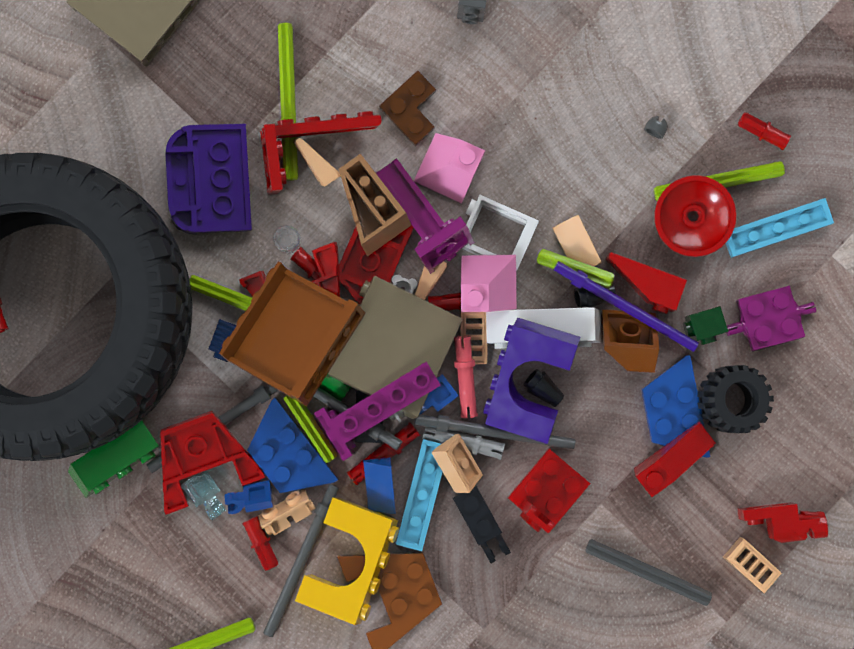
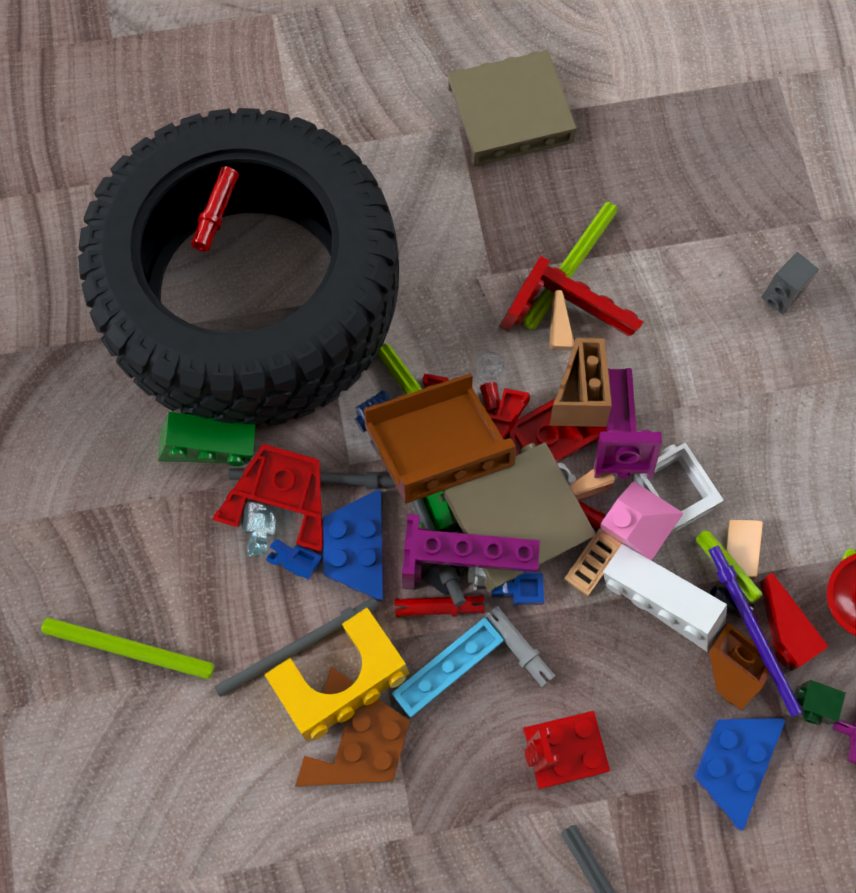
camera: 40 degrees right, 15 degrees down
(208, 179) = (459, 278): dark purple plate -> none
(260, 543) = (273, 605): red axle -> none
(295, 504) = (327, 595): light nougat hinge -> none
(312, 429) = (392, 537): lime axle -> none
(379, 485) = (416, 629): blue slope -> none
(403, 108) = (666, 334): reddish brown plate -> none
(443, 423) = (513, 616): dark grey bar -> none
(449, 167) = (674, 407): bright pink slope -> none
(457, 464) = (499, 662): light nougat slope -> none
(464, 365) = (568, 579): coral pin -> none
(480, 521) = (483, 731): black hinge -> none
(508, 408) = (581, 641): dark purple arch -> none
(543, 387) = (626, 652): black cone -> none
(673, 459) = (708, 804): red slope -> none
(755, 394) = (828, 790): black tyre -> none

